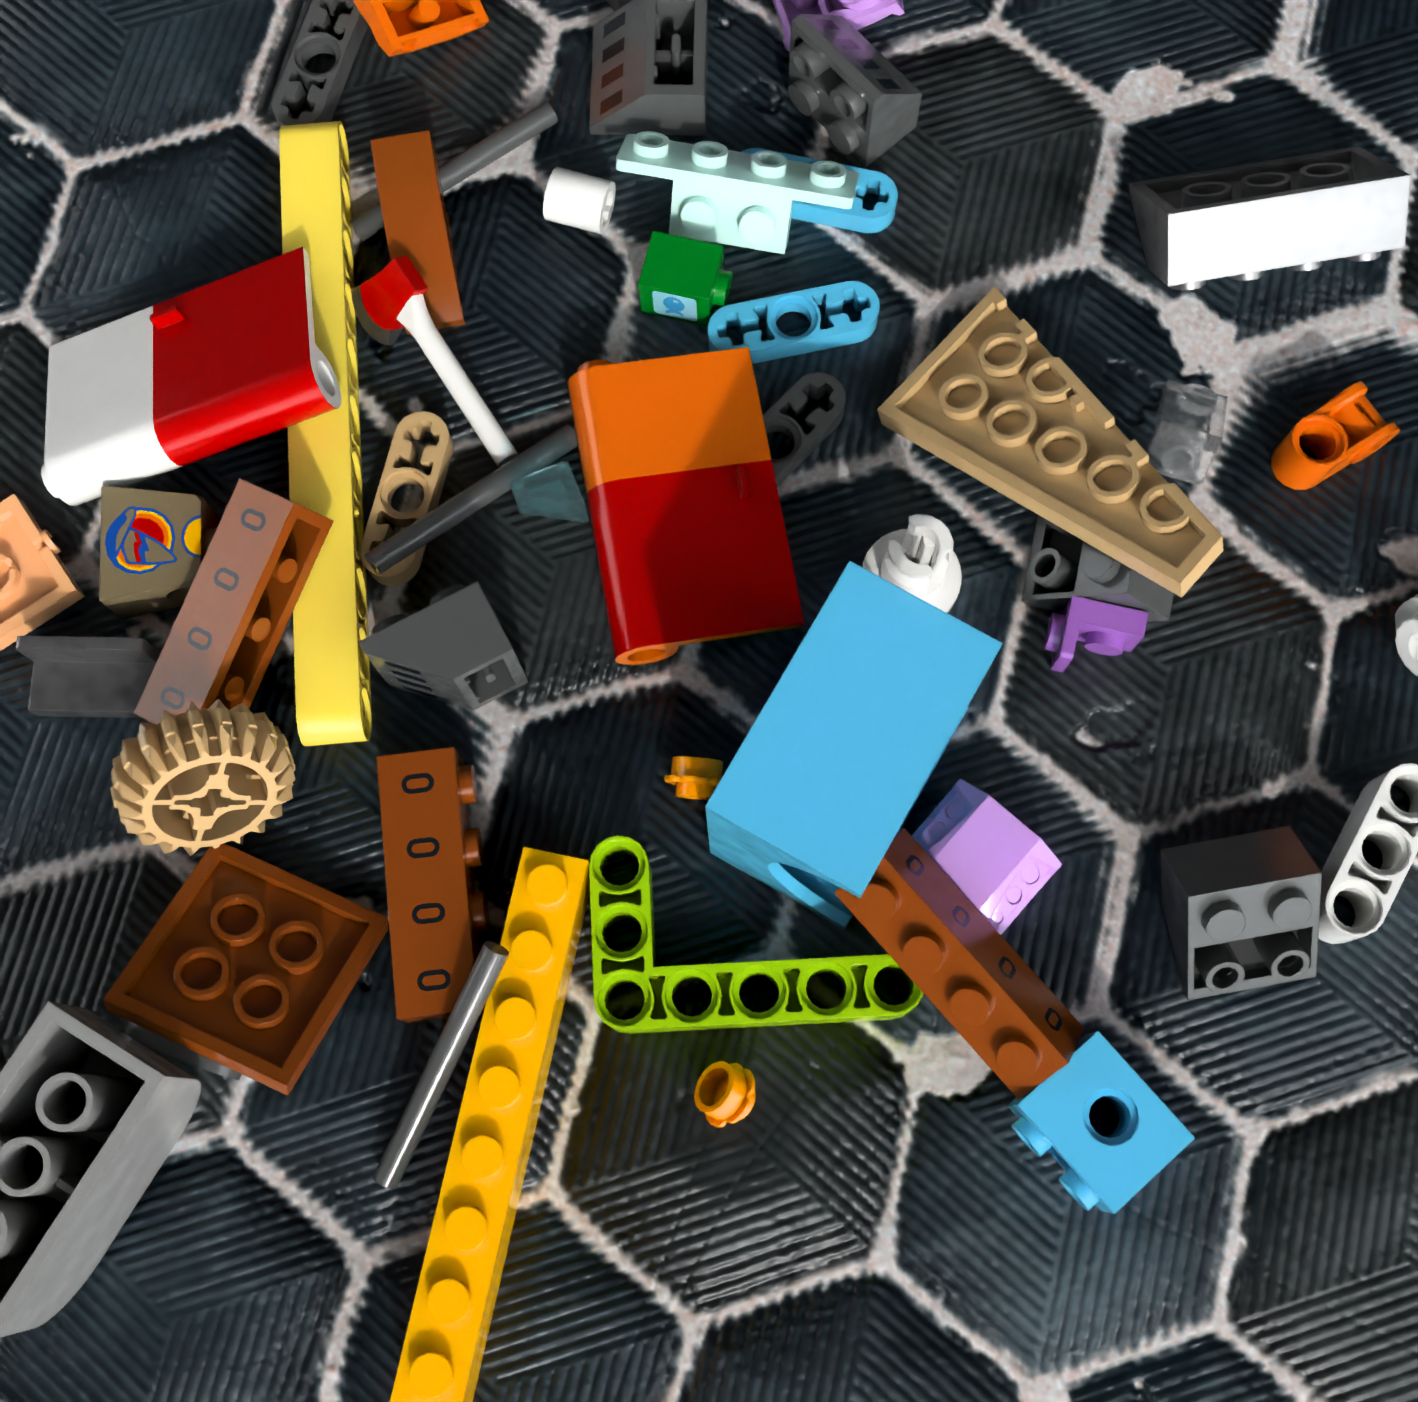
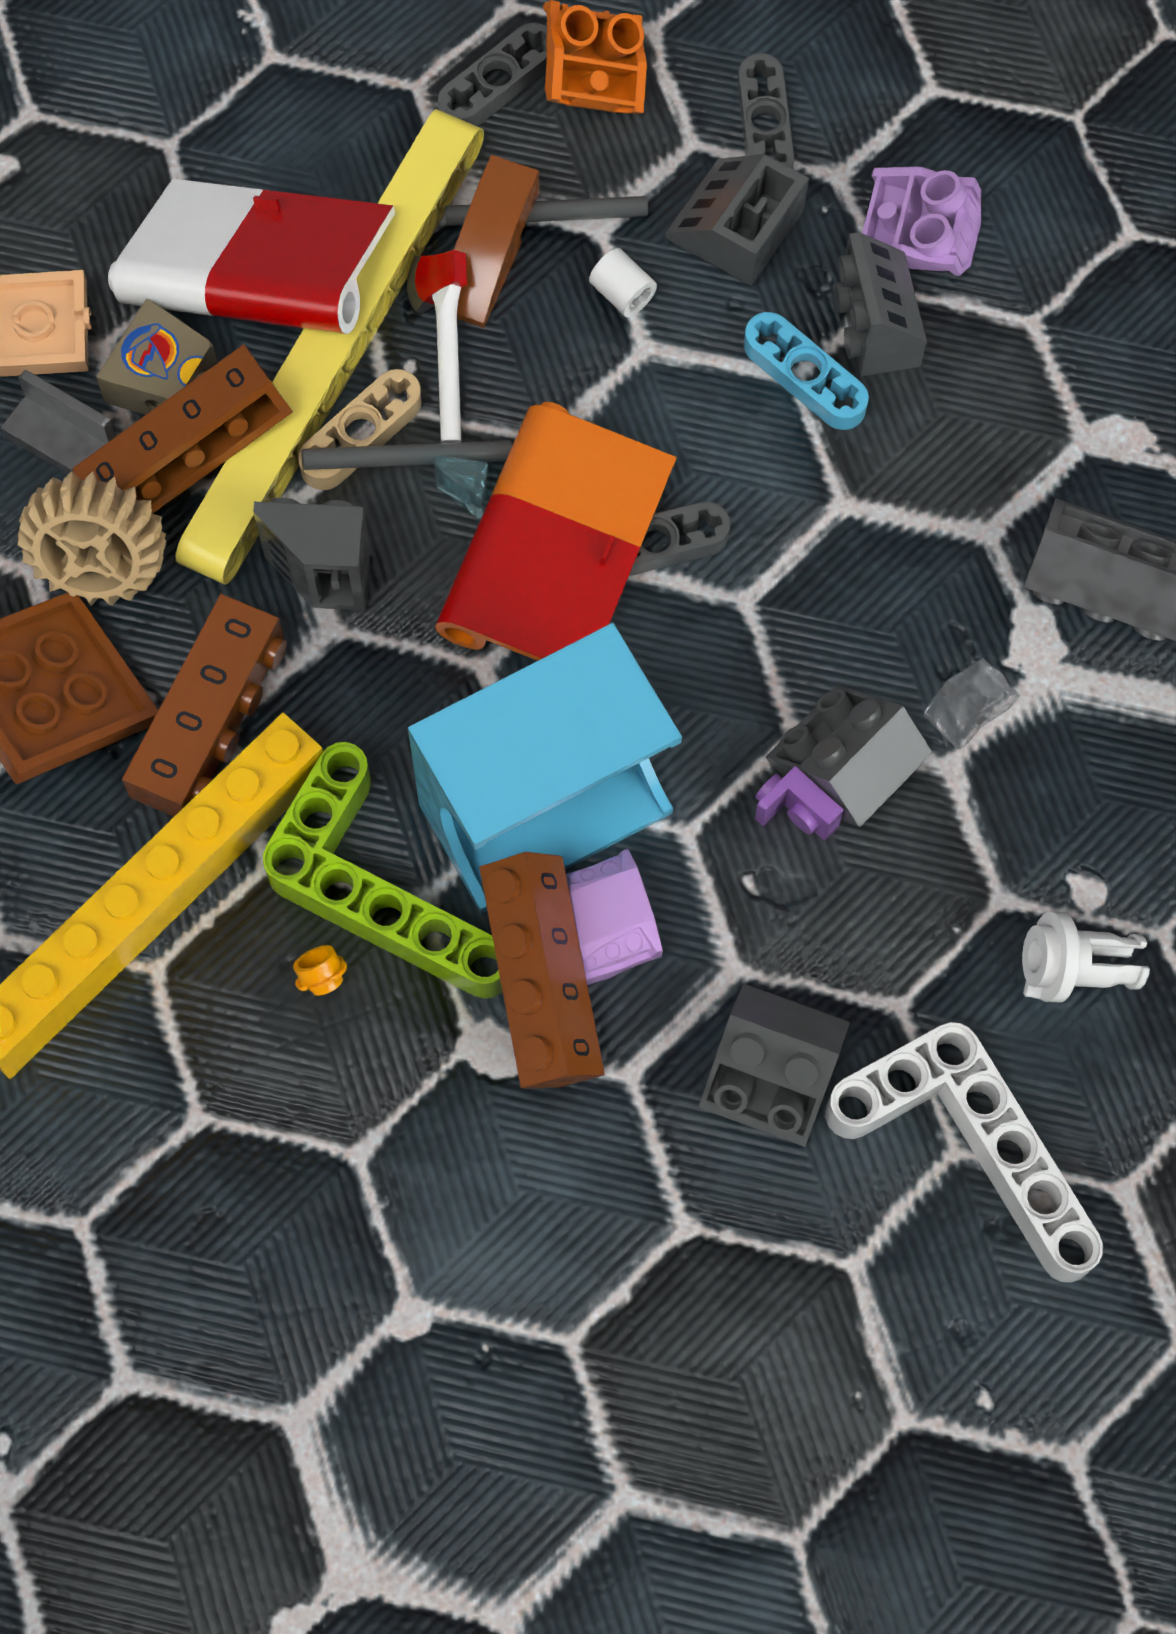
camera: 25 degrees right, 5 degrees down
(441, 1064) = (132, 829): dark grey bar -> none
(683, 279) = (662, 382): green brick -> none
(733, 193) = (740, 339): light aqua bracket -> none
(807, 302) = (735, 480): medium azure beam -> none
(919, 561) = (700, 668): white piece -> none
(1039, 436) = (841, 630): tan wing -> none
(1099, 1167) = (552, 1172): medium azure brick -> none
(1338, 435) = (1090, 766): orange piece -> none

